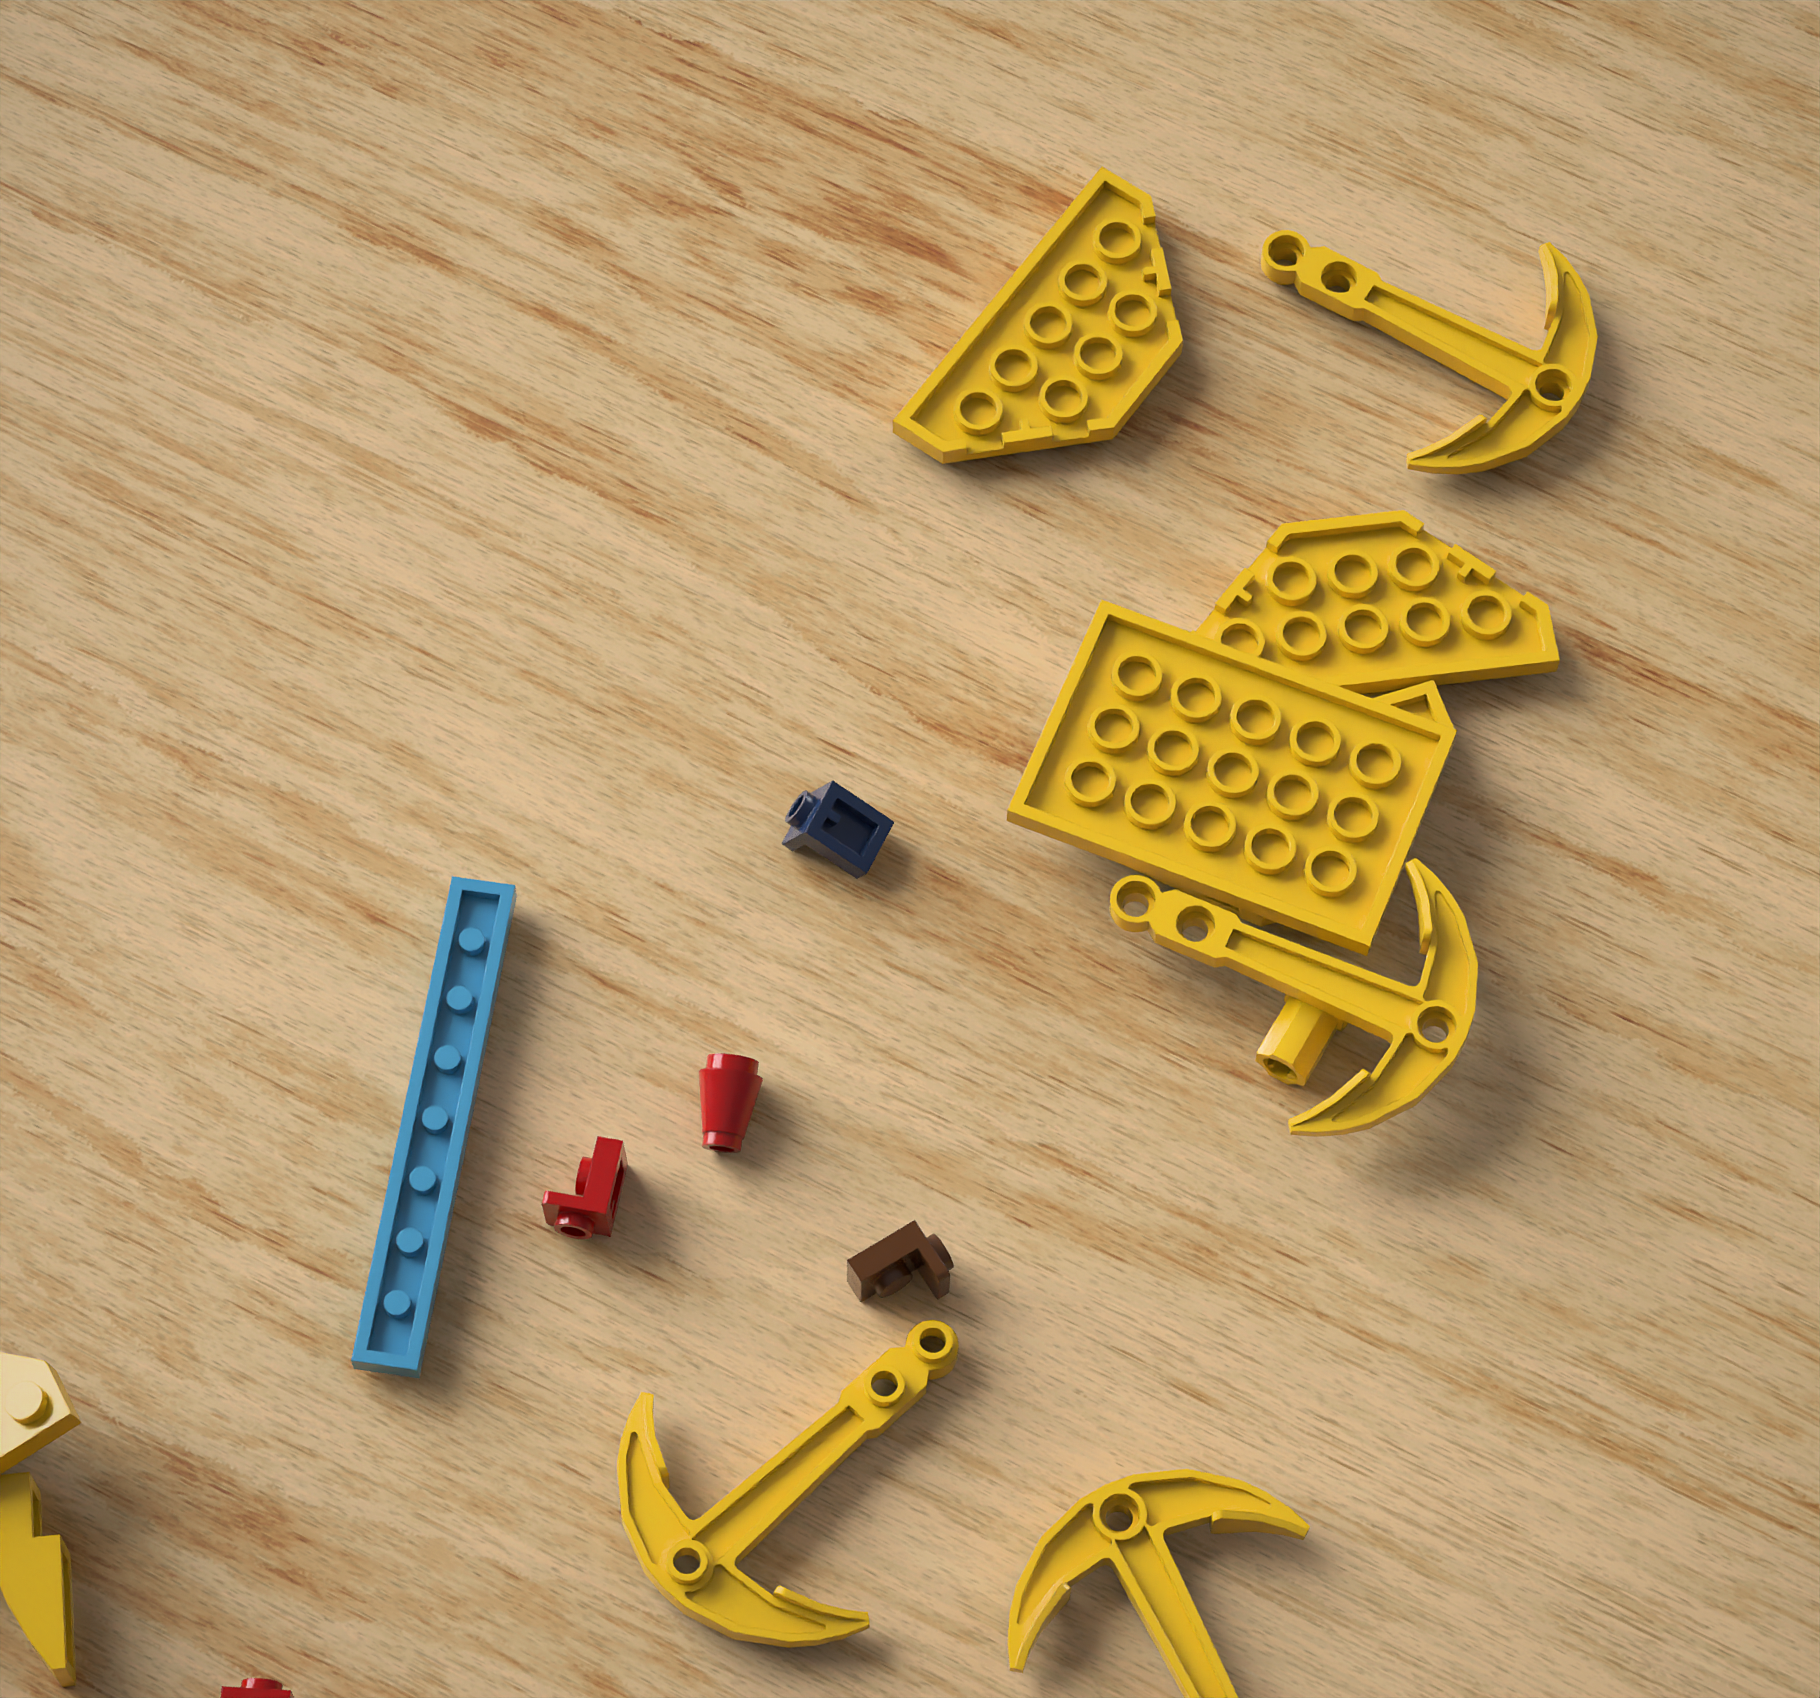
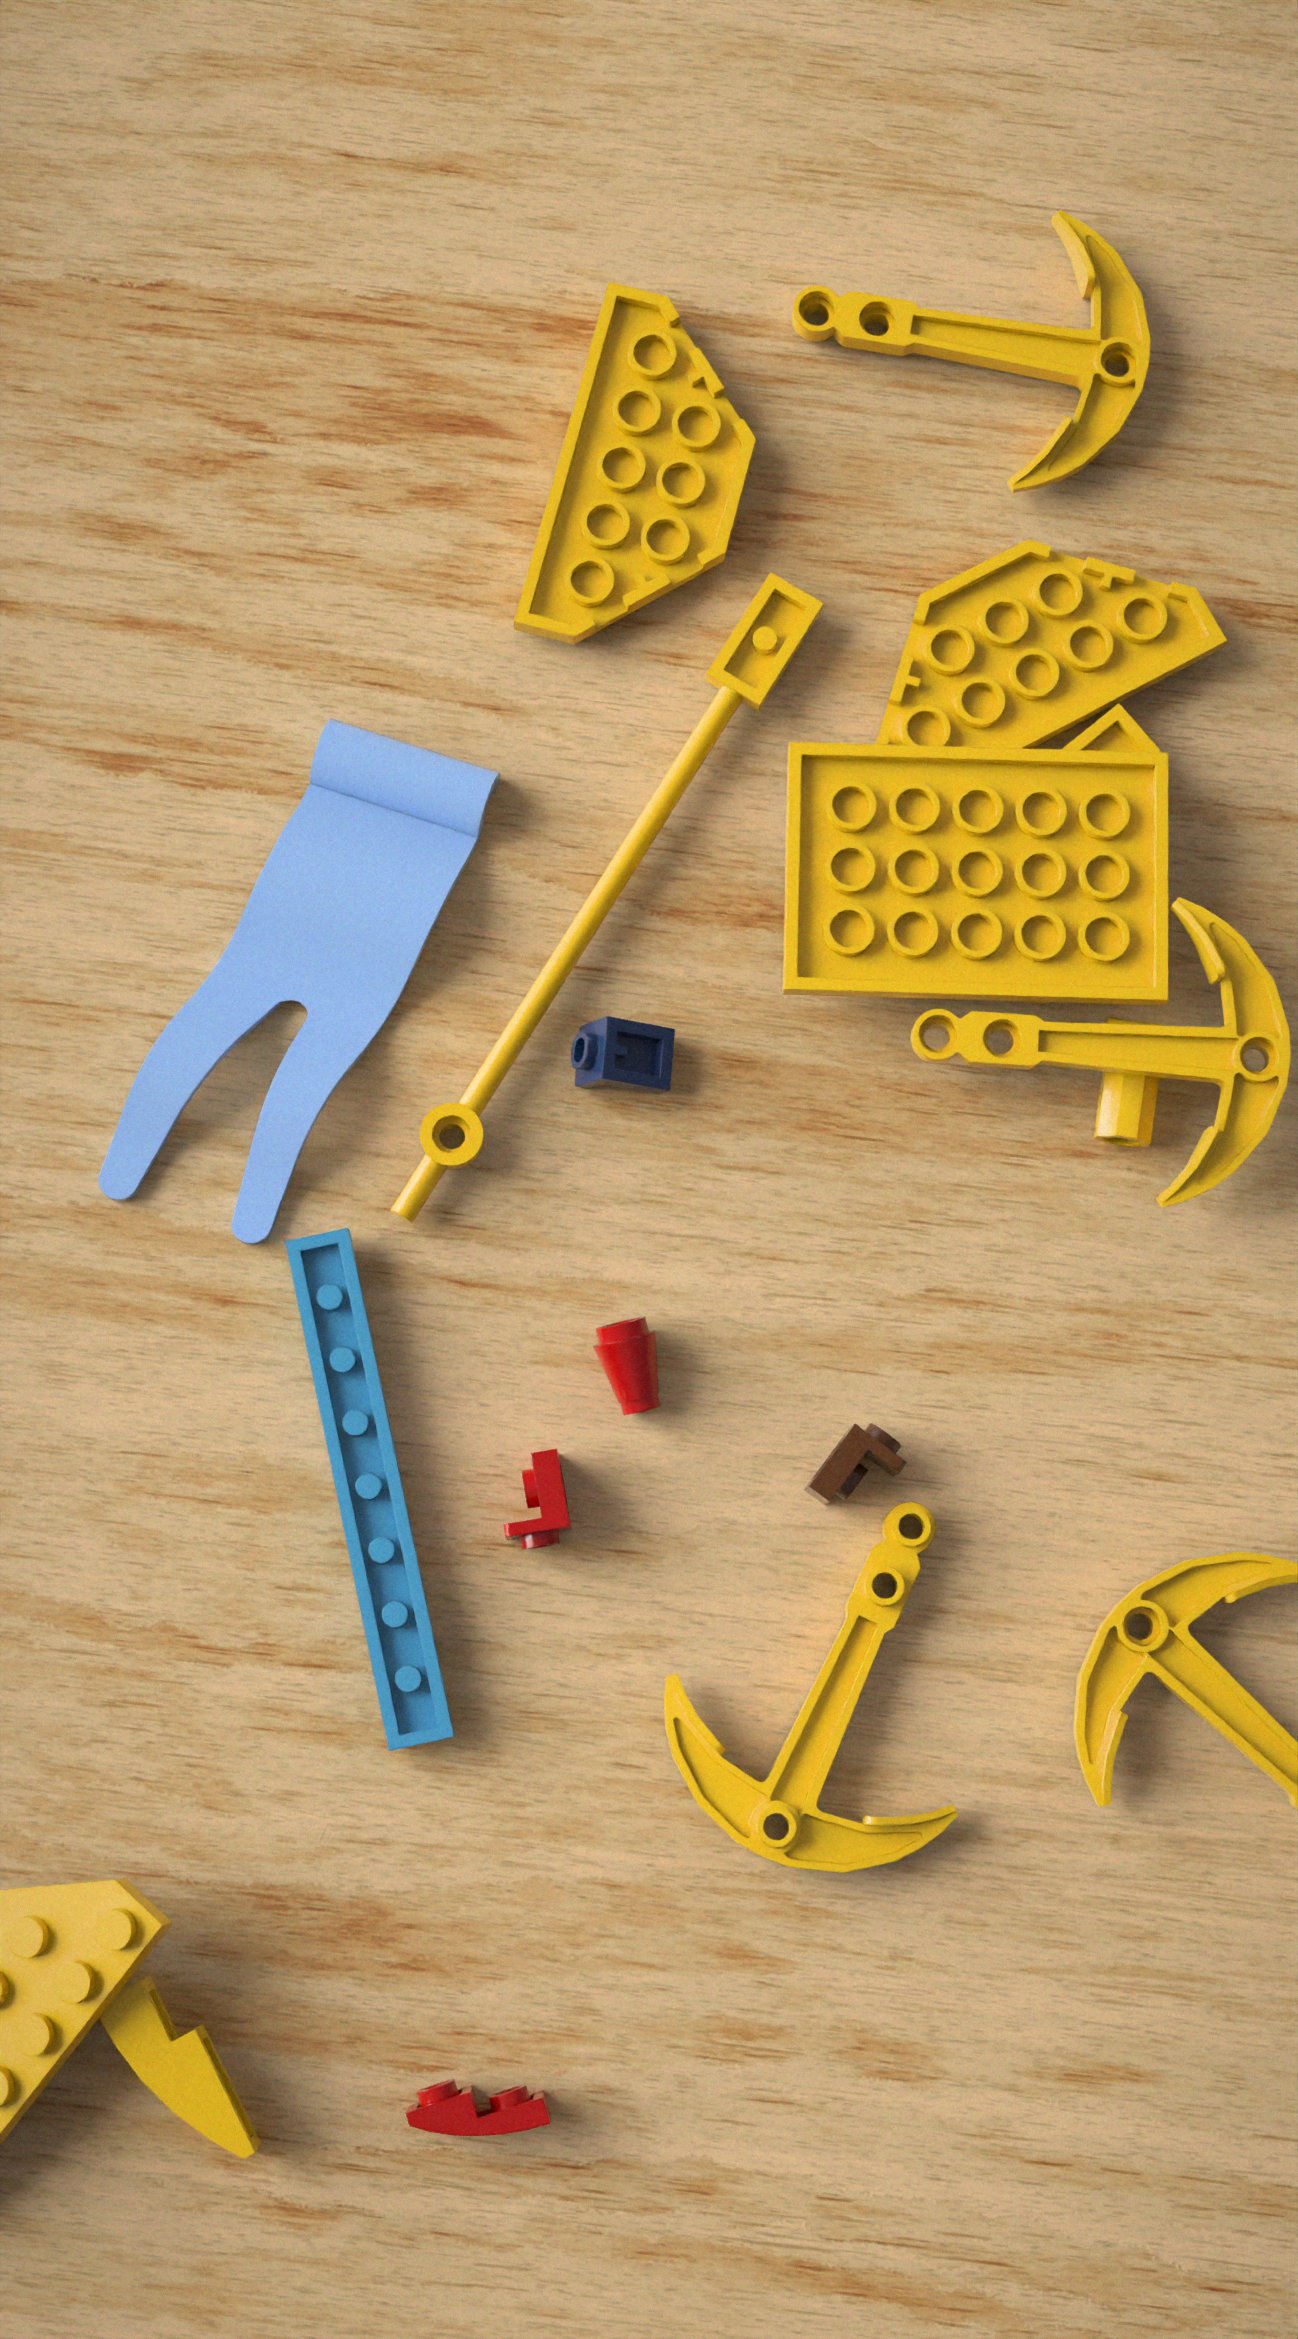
camera: 25 degrees left, 15 degrees up
(606, 625) = (325, 927): none -> light blue flag
(1089, 535) = (743, 674): none -> yellow bar

